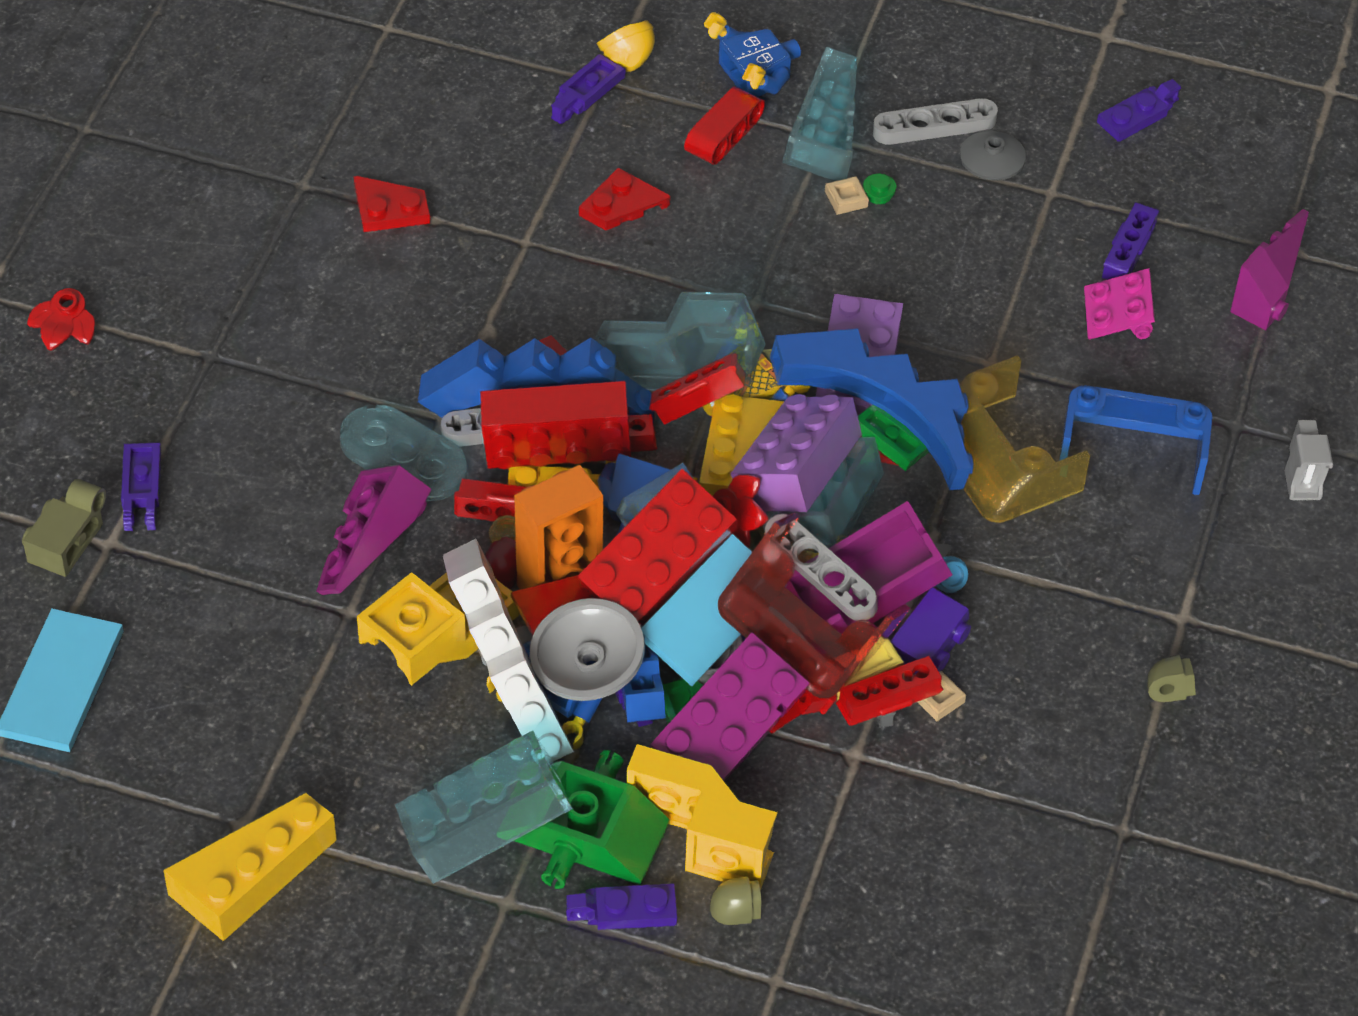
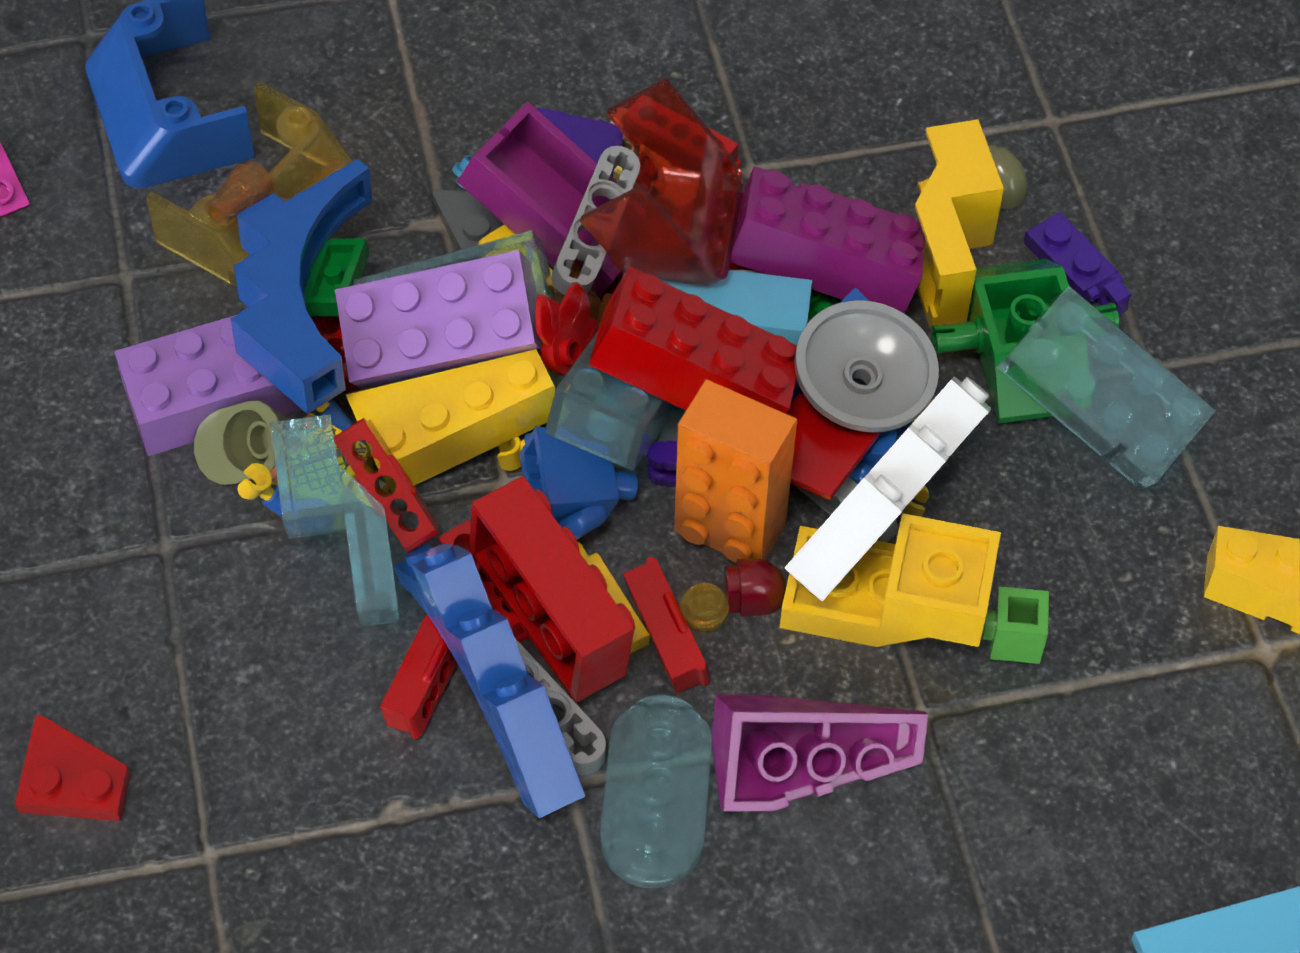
camera: 120 degrees left, 5 degrees up
(357, 672) = (1017, 625): none -> bright green brick
(977, 390) = (240, 190): none -> clear orange cone

